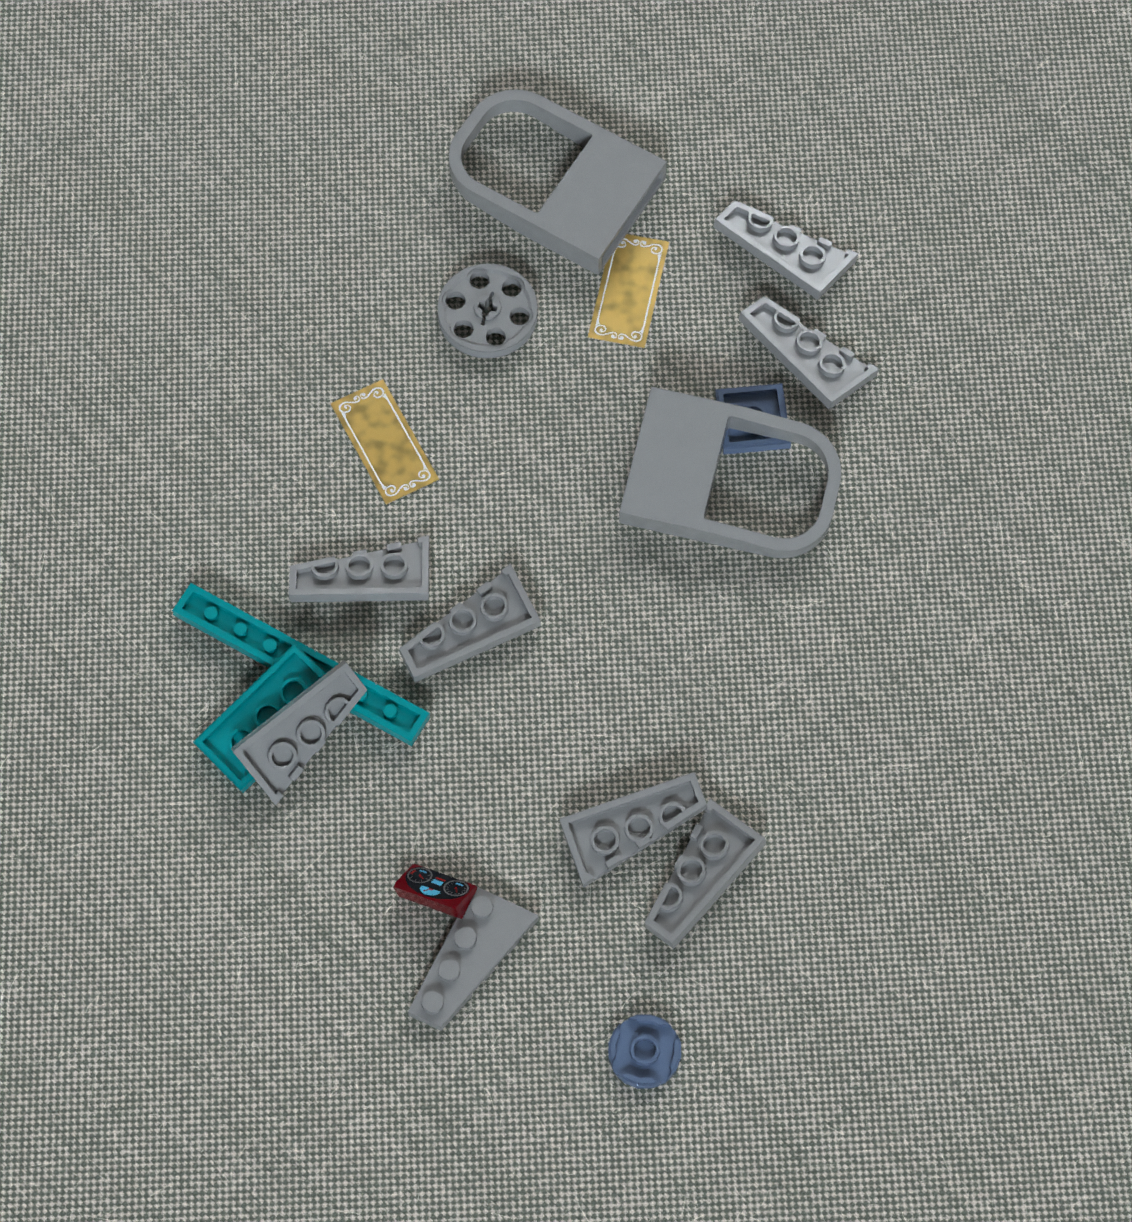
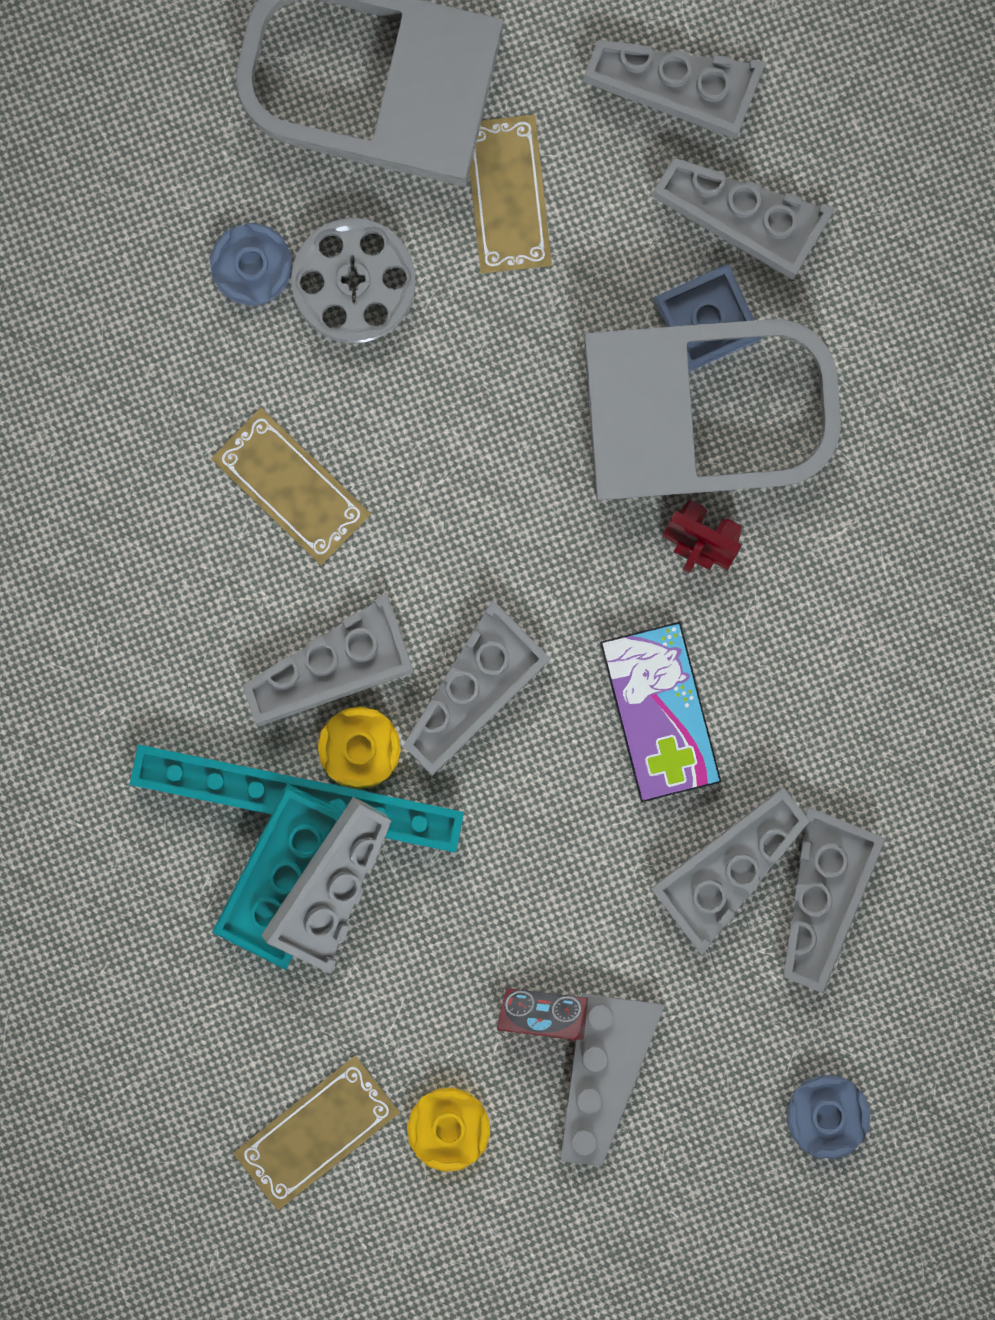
camera: 20 degrees left, 20 degrees up
(215, 929) = (316, 1133): none -> pearl gold sticker
(325, 959) = (448, 1129): none -> yellow tile
(365, 643) = (359, 748): none -> yellow tile
(413, 278) = (251, 264): none -> sand blue tile
(614, 692) = (660, 712): none -> tile
(691, 572) = (701, 543): none -> dark red hips

